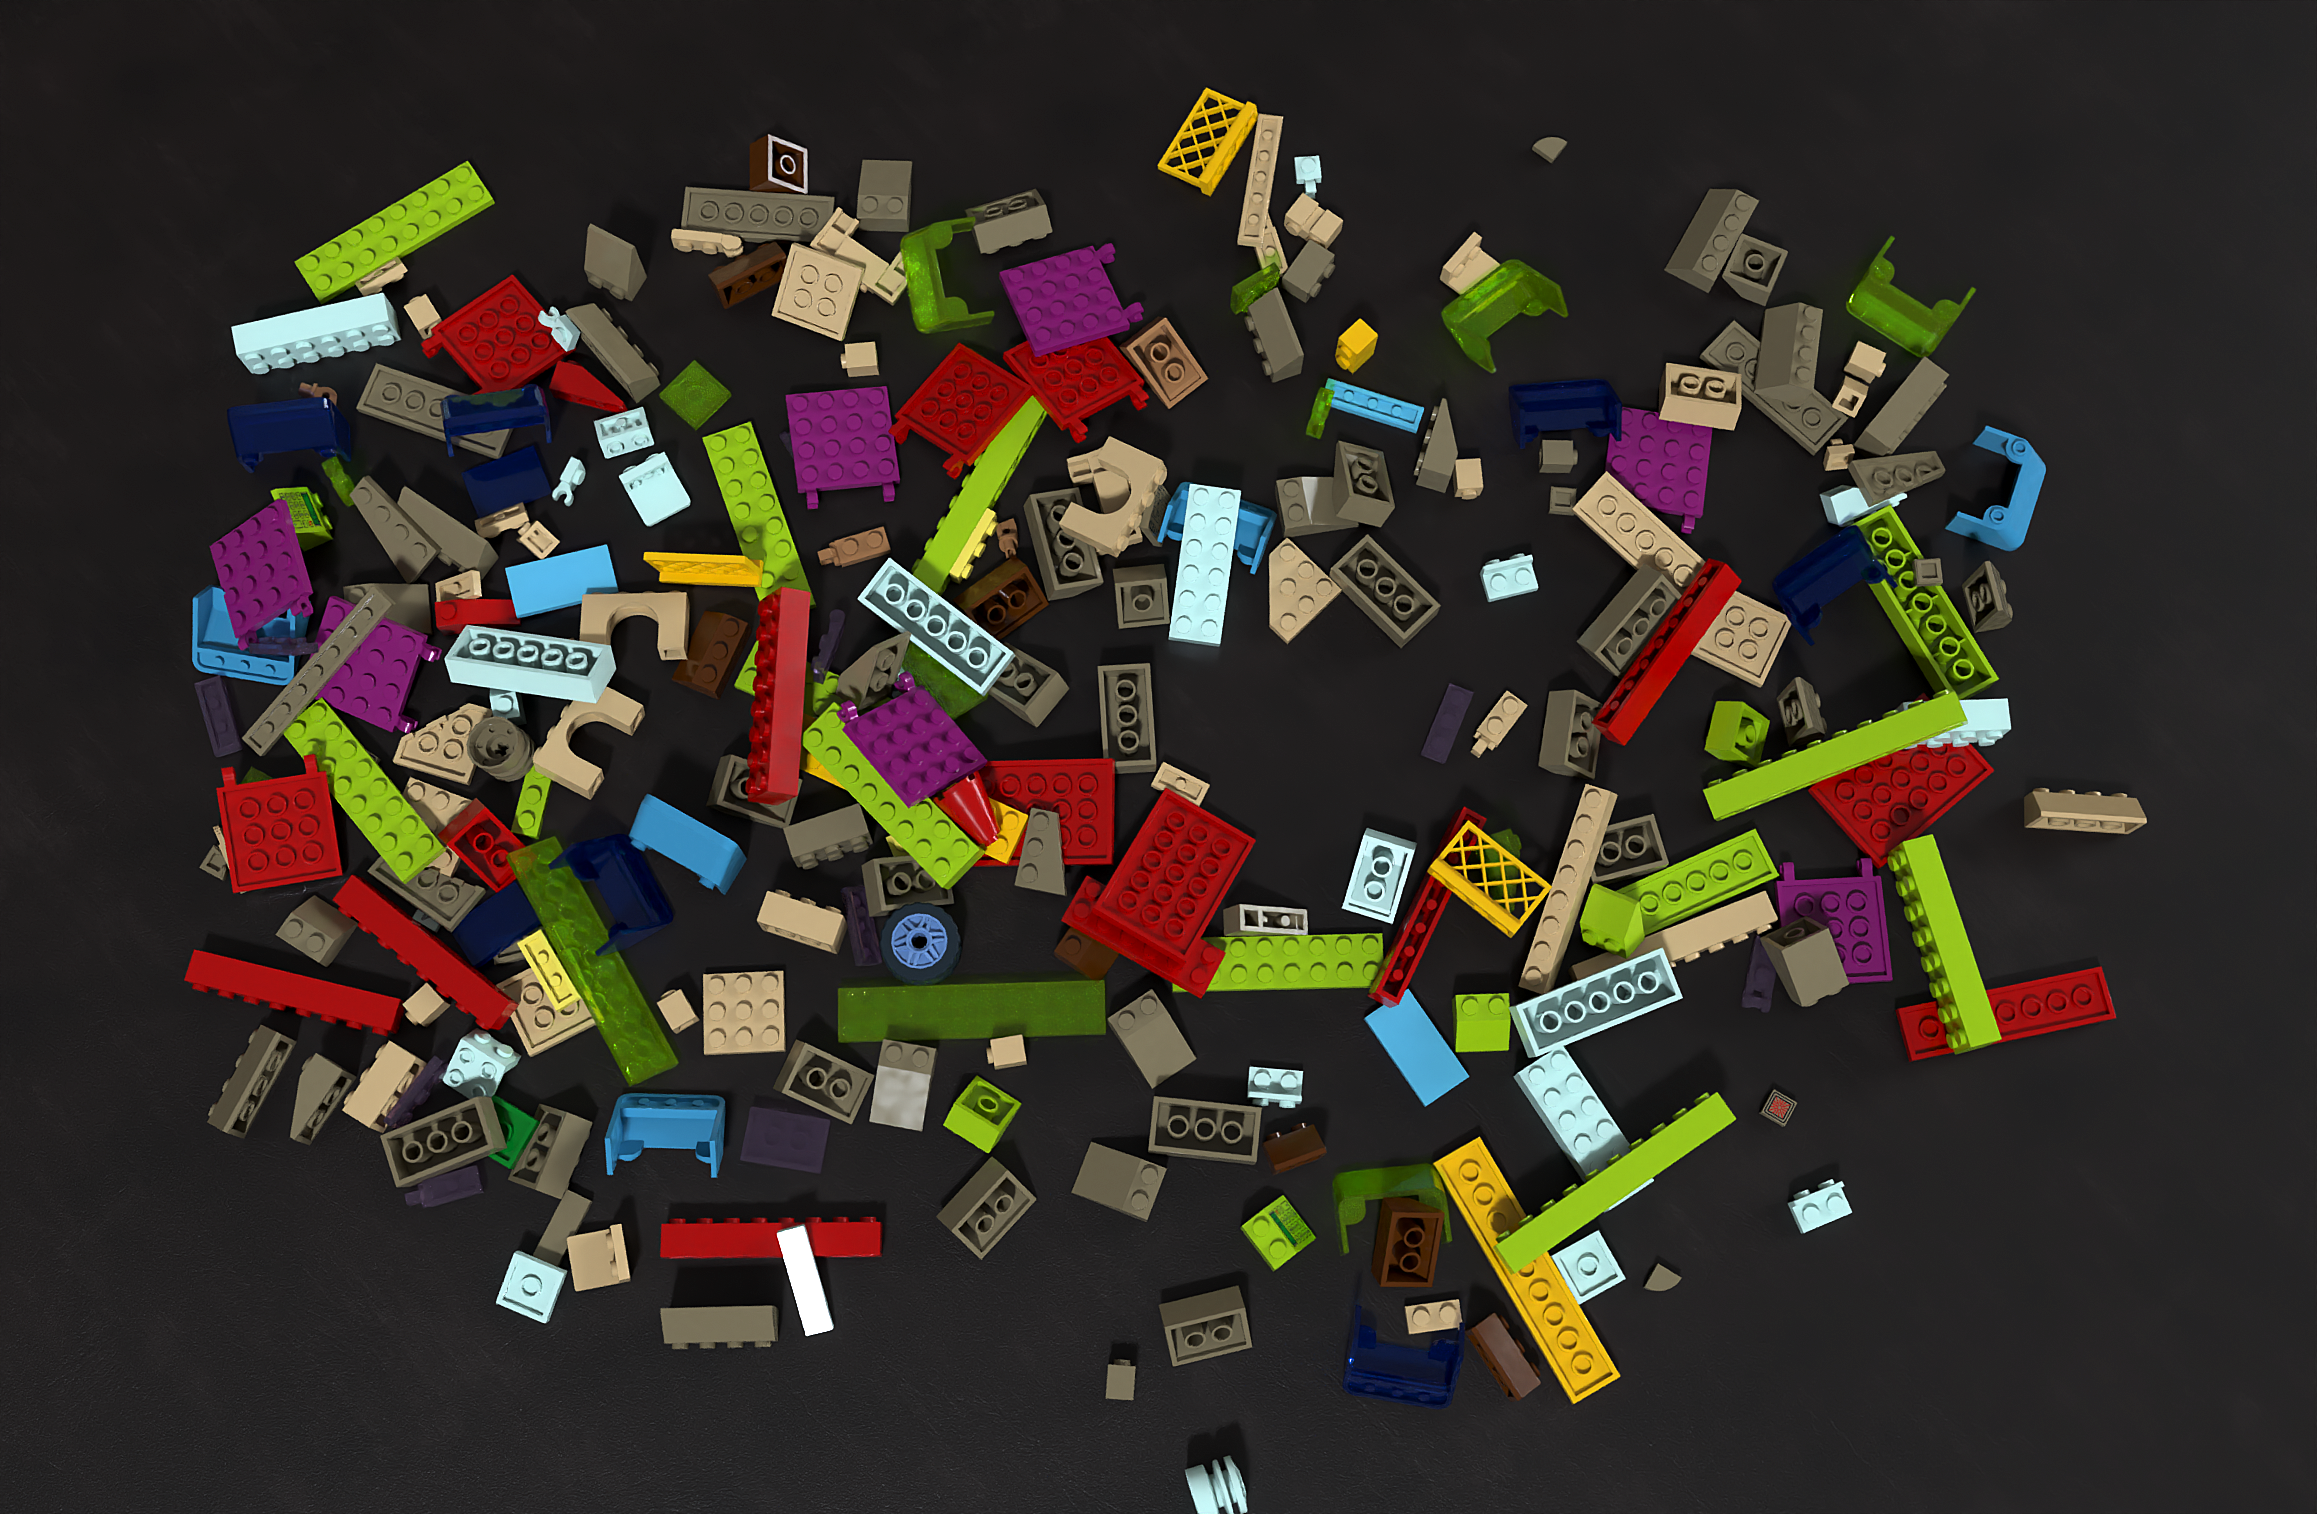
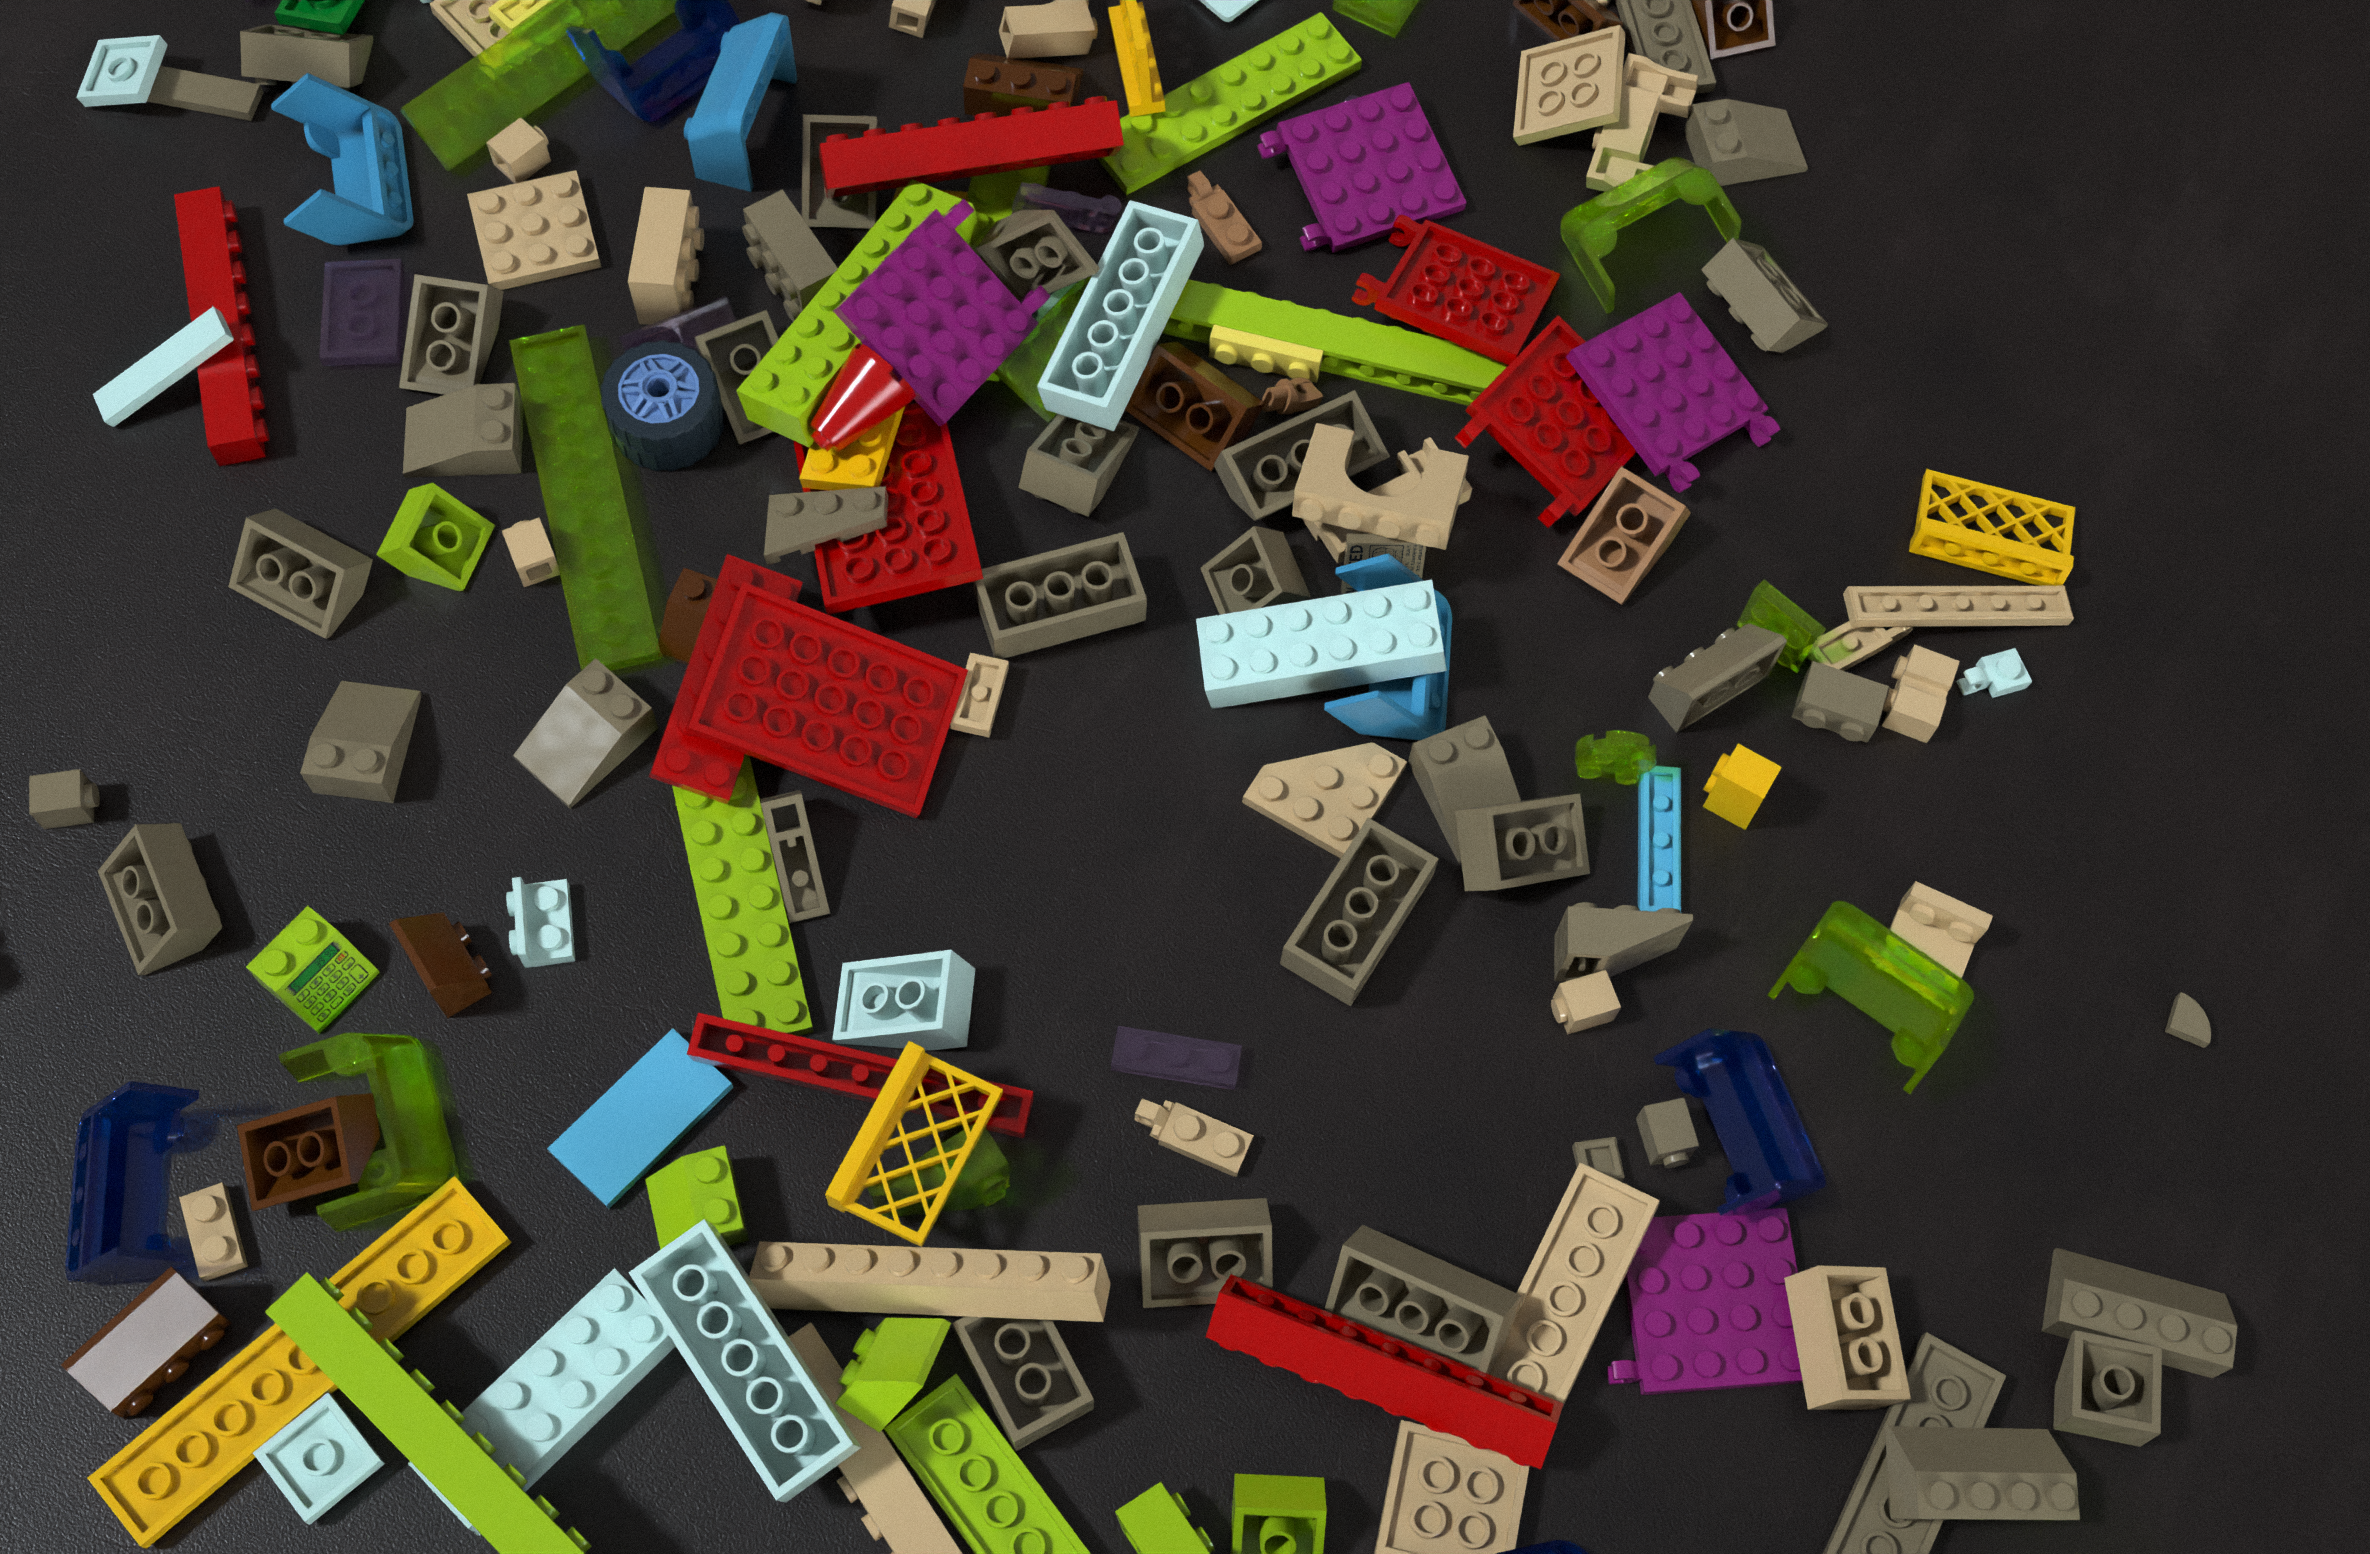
camera: 75 degrees right, 10 degrees down
(598, 1258) = (169, 137): tan bracket -> none
(720, 1325) = (92, 286): dark tan slope -> none
(860, 359) = (1494, 164): tan brick -> none
(1204, 1130) = (452, 830): dark tan brick -> none
(1508, 577) = (1442, 1102): light aqua bracket -> none

